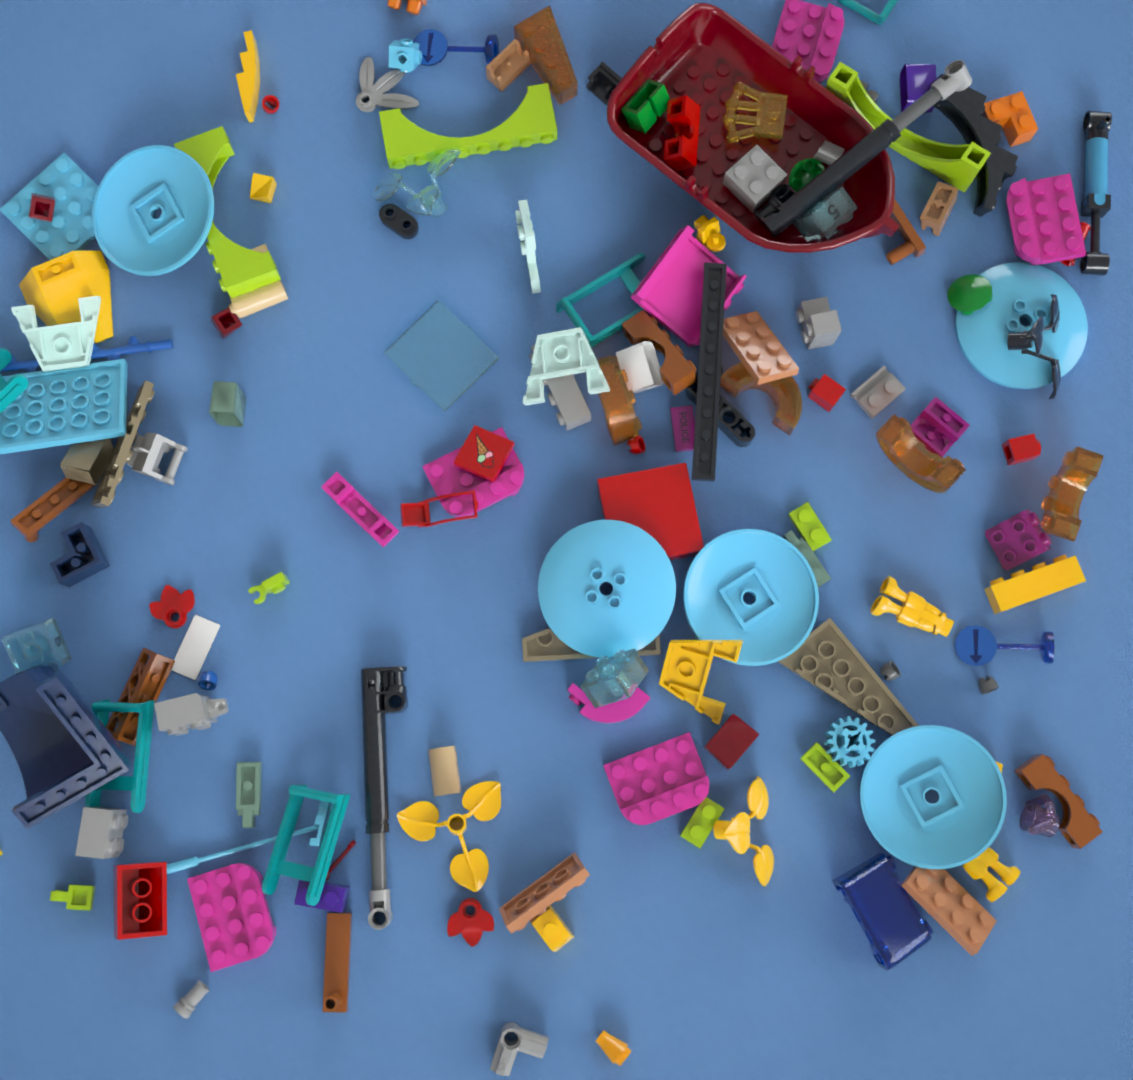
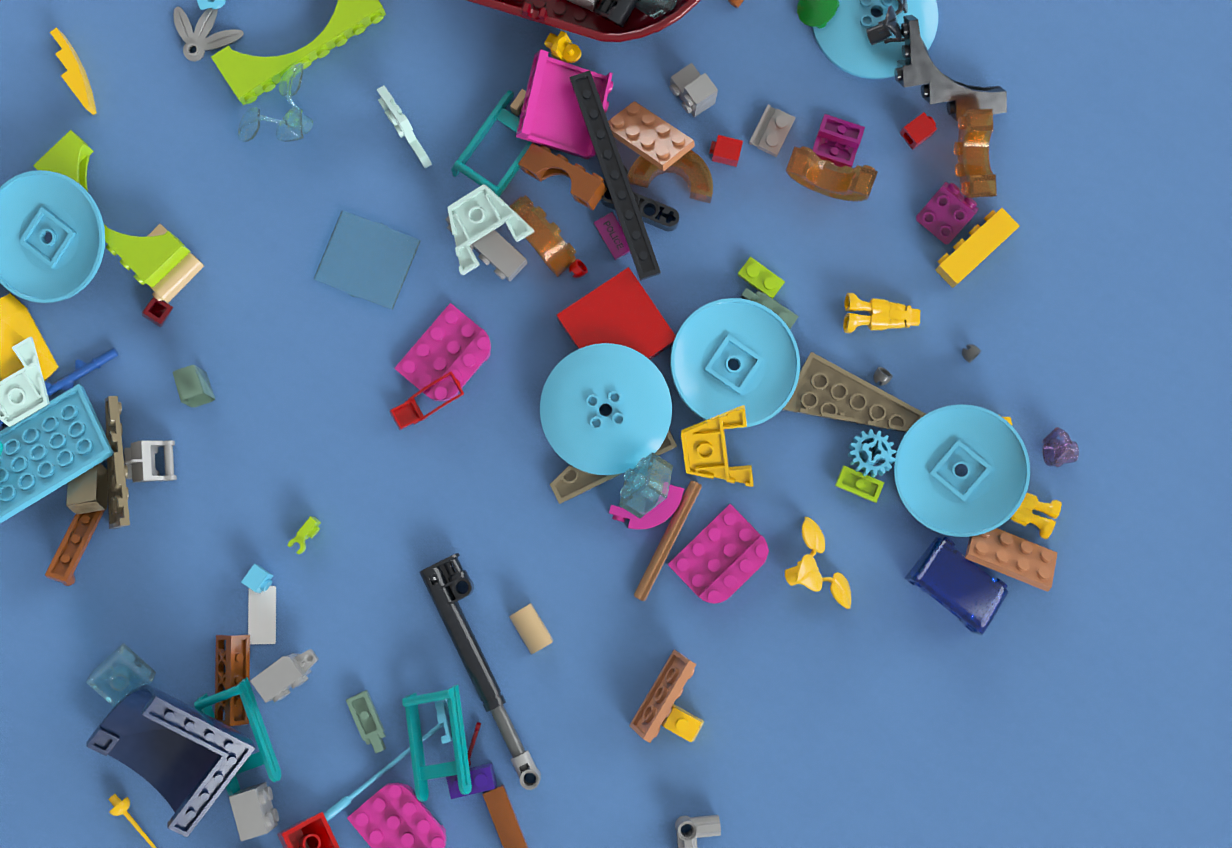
camera: 25 degrees left, 5 degrees up
(84, 557) = (126, 577): dark blue brick -> none
(173, 603) = (223, 585): red plate -> none
(206, 610) = (258, 579): none -> medium azure plate
(208, 680) = (287, 639): blue hinge -> none
(262, 188) = (134, 172): yellow slope -> none
(272, 101) = (106, 86): red hinge -> none
(360, 509) = (355, 430): dark pink slope -> none
(398, 220) = (272, 151): black plate -> none
(421, 822) = (573, 640): yellow plant -> none
(470, 924) = (610, 750): red plate -> none
(484, 453) = (445, 334): red tile -> none
(613, 742) = (667, 540): none -> medium nougat axle
(614, 1048) = (778, 800): light orange cone -> none
(640, 366) = (552, 196): white piece -> none
(644, 268) = (517, 104): none -> tan tile
(702, 822) = (773, 577): lime plate -> none
(731, 741) = (769, 496): dark red piece -> none
(978, 646) = (949, 321): piece -> none
(1056, 415) = (937, 87): none -> arch
(1076, 823) = (1093, 441): dark orange arch -> none

